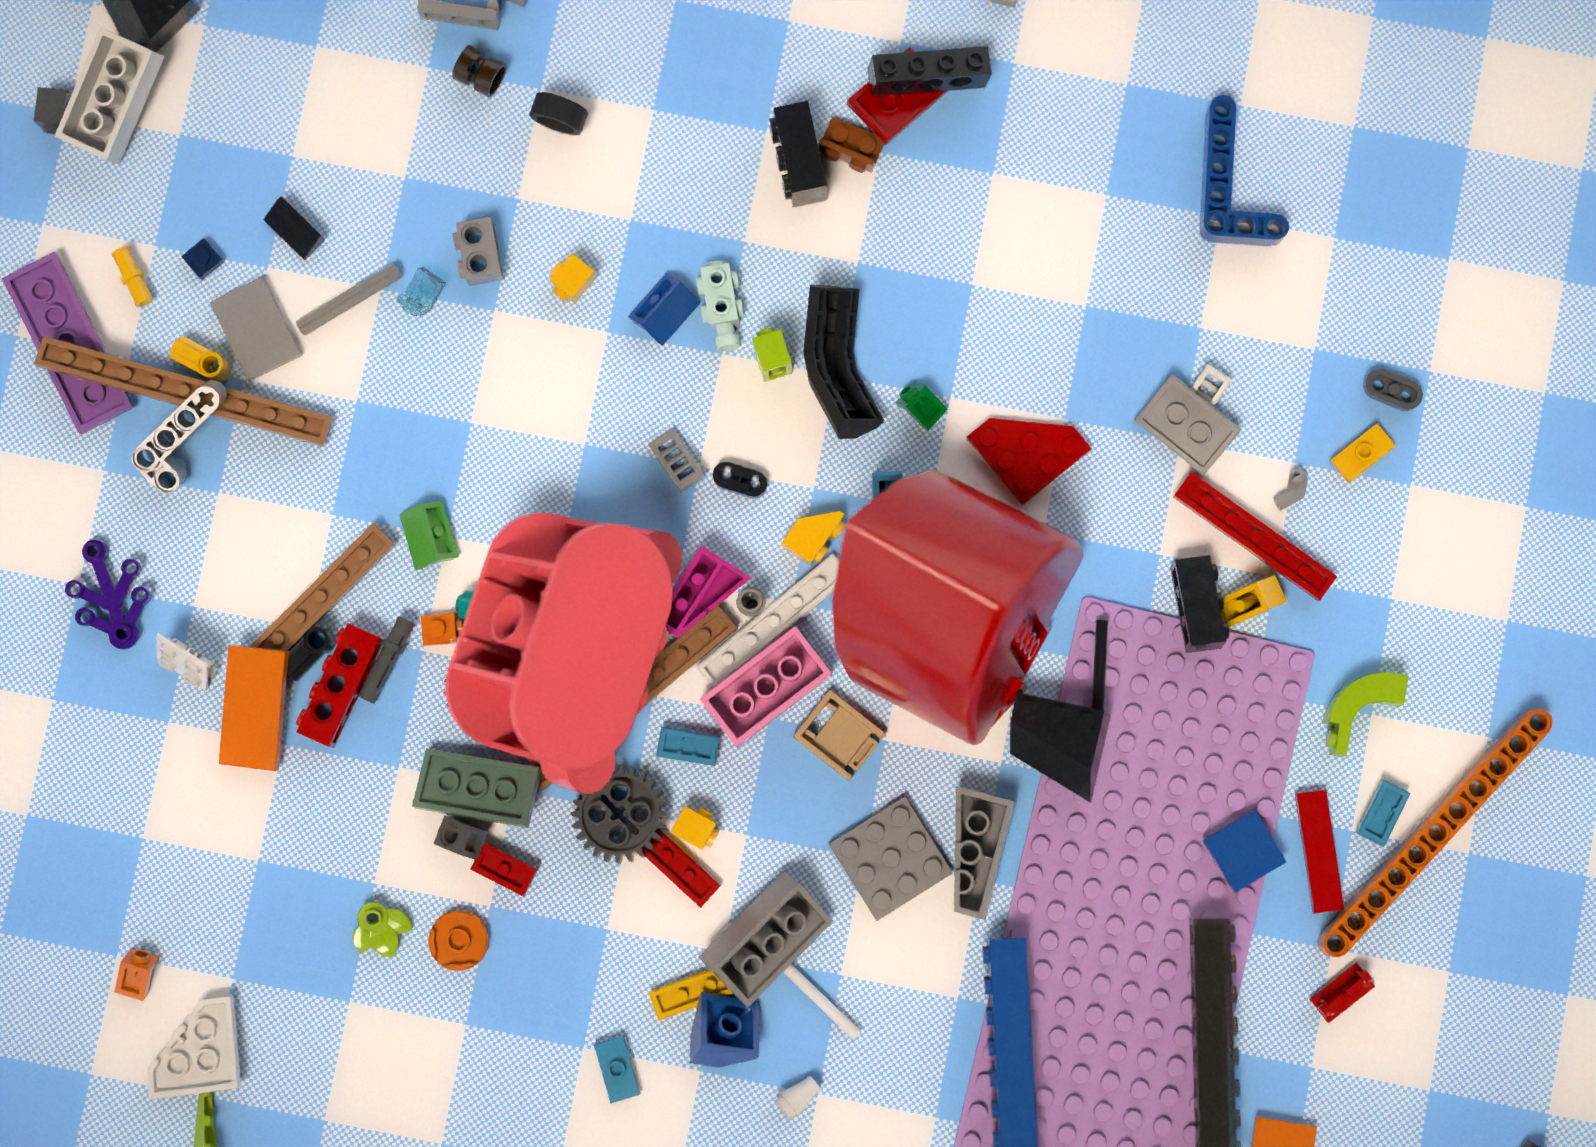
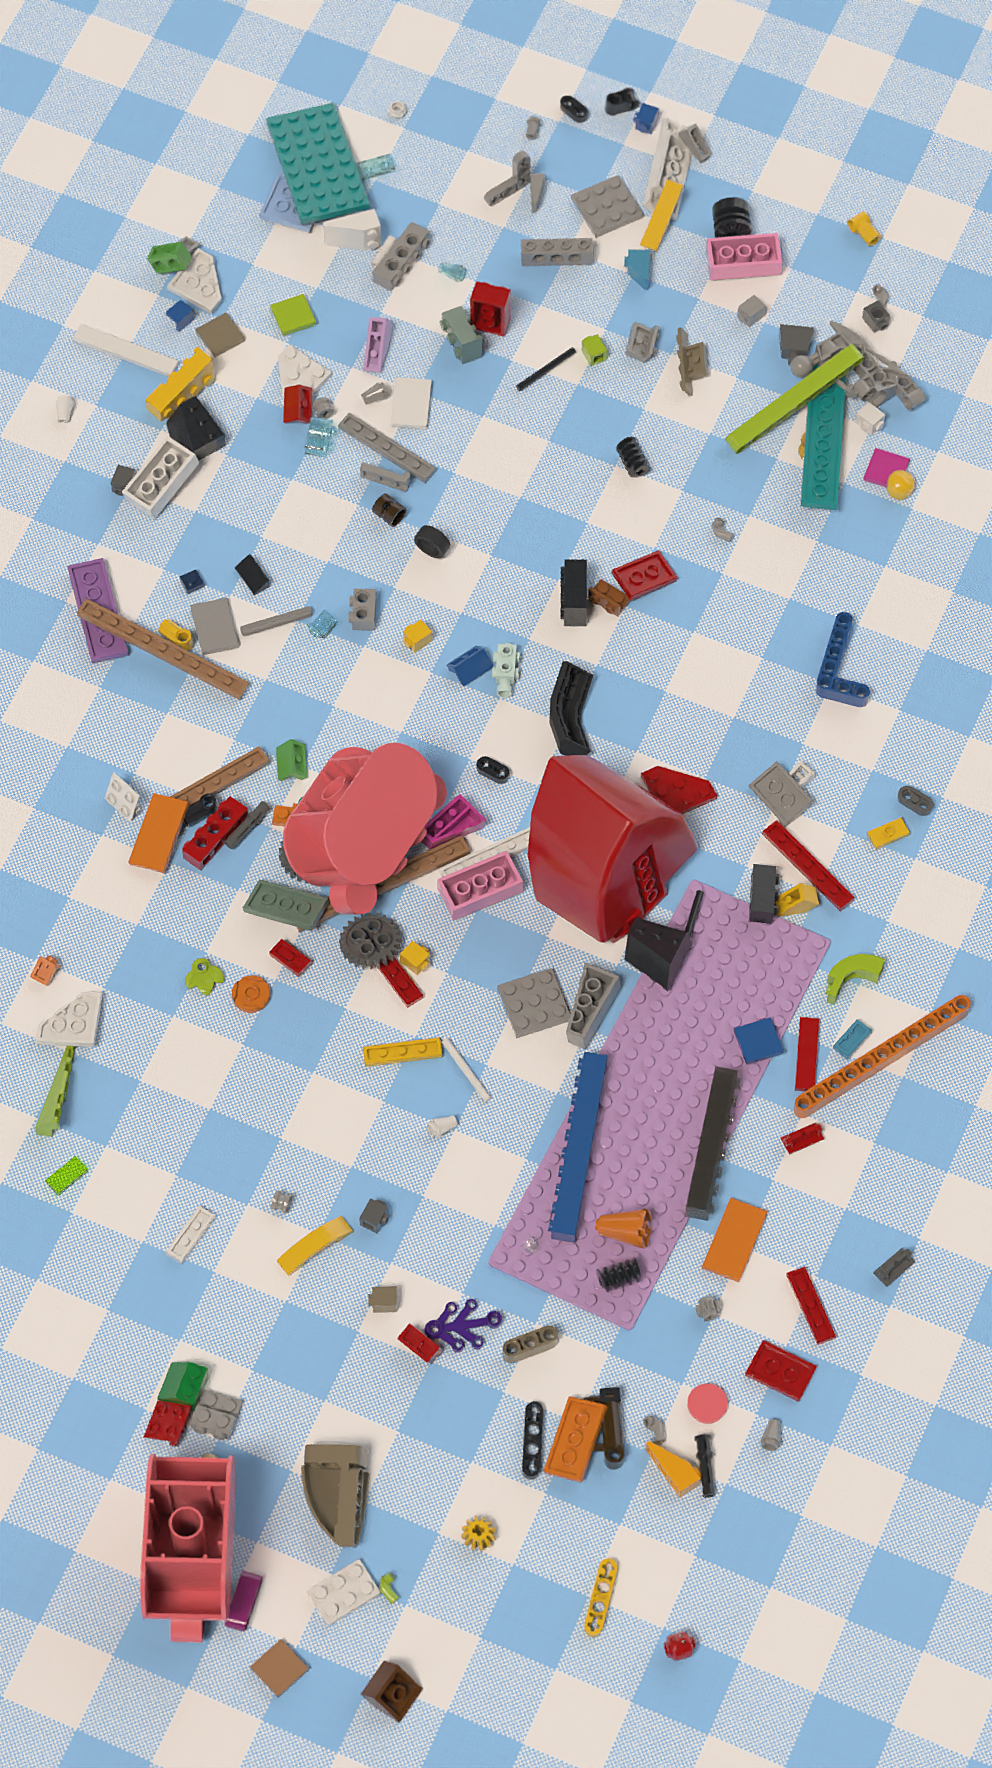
camera: 10 degrees right, 20 degrees down
(111, 599) = (86, 757): dark purple plant -> none
(132, 276) = (146, 581): yellow pin -> none
(181, 430) = (157, 668): light grey beam -> none
(460, 838) = (268, 931): dark grey brick -> none
(617, 1069) = (331, 1087): dark azure plate -> none
(688, 481) = (459, 763): light grey slope -> none
(688, 746) = (422, 912): dark azure plate -> none
(724, 1031) = (404, 1076): blue slope -> none
(750, 595) = (482, 835): light grey cone -> none
(765, 938) = (444, 1027): light grey slope -> none
(772, 354) = (530, 700): lime brick -> none
(811, 534) = (522, 808): yellow slope -> none
(844, 737) = (522, 929): tan container -> none
(921, 404) = (617, 749): green bracket -> none
(929, 71) = (666, 562): black brick -> none
(1295, 490) = (840, 846): light grey arm -> none

